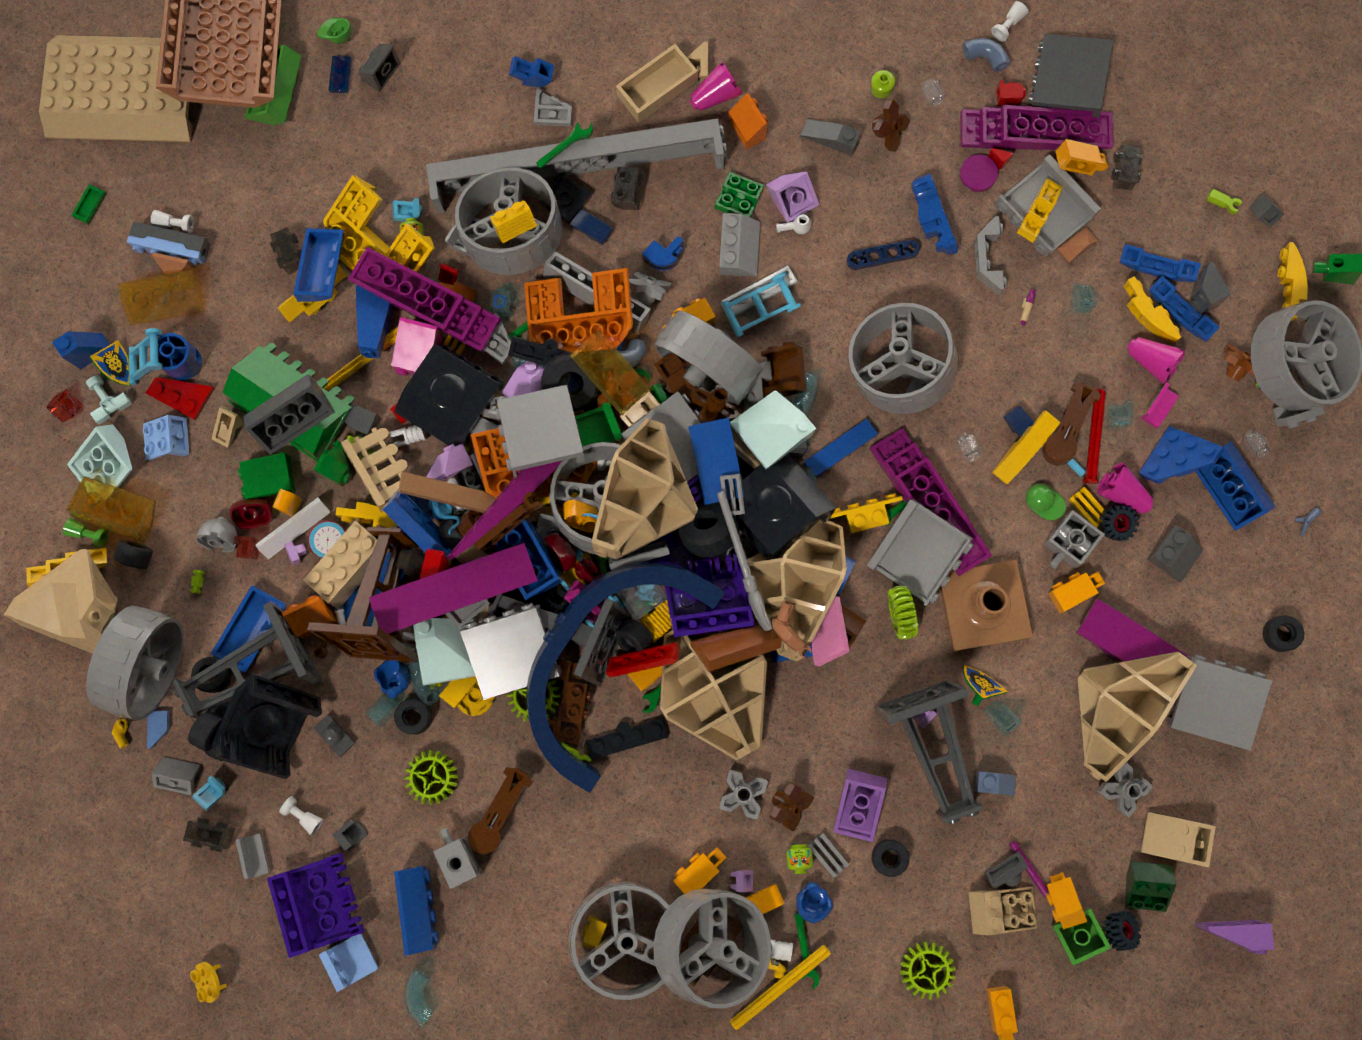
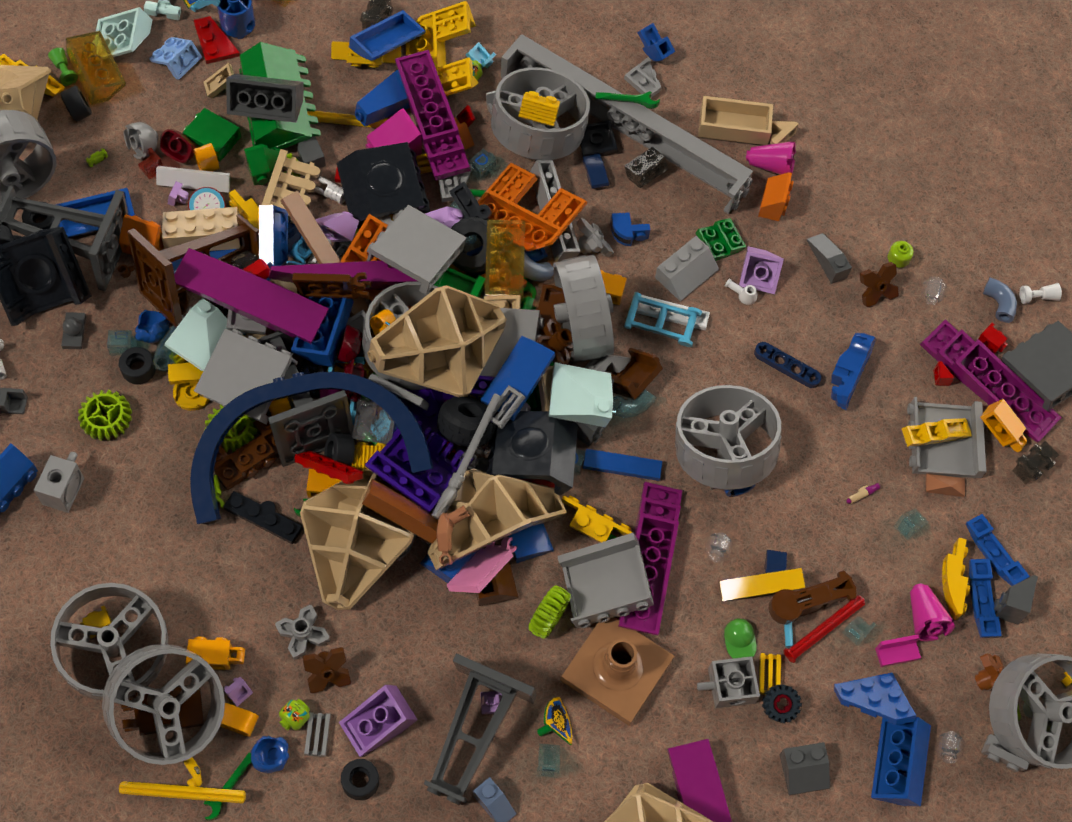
camera: 30 degrees right, 15 degrees down
(486, 835) = (101, 484): reddish brown piece -> none
(781, 950) = (209, 764): white hinge -> none
(978, 173) = (916, 373): magenta tile -> none
(992, 279) = (882, 416): light grey slope -> none
(1075, 591) = (699, 722): light orange brick -> none
(1125, 489) = (811, 684): dark pink cone -> none

